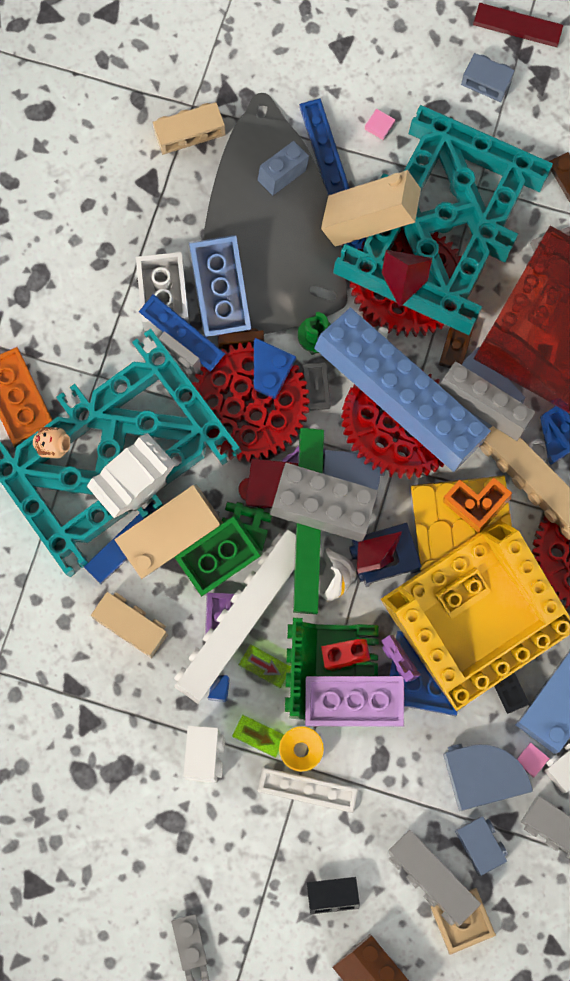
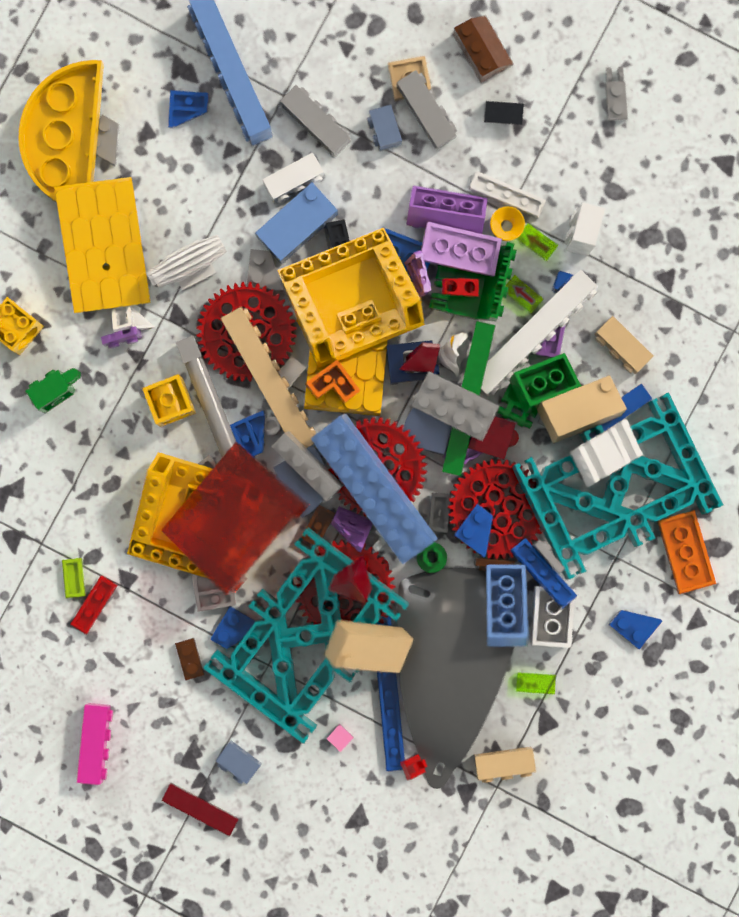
camera: 170 degrees left, 10 degrees up
(51, 442) = (664, 497): light nougat head -> none
(64, 301) = (634, 627): none -> blue wing
(168, 220) = (535, 683): none -> clear neon green tile
(283, 168) = (434, 700): sand blue brick -> none
(291, 107) = (413, 766): none -> red tile
(381, 753) = (446, 209): none -> medium lavender slope
(418, 347) = (352, 527): none -> medium lavender wing
(484, 775) = (371, 178): sand blue brick -> none
(528, 216) = (232, 628): none -> blue wing
(528, 518) = (292, 370): none -> white tile
(532, 760) = (331, 184): bright pink tile -> none

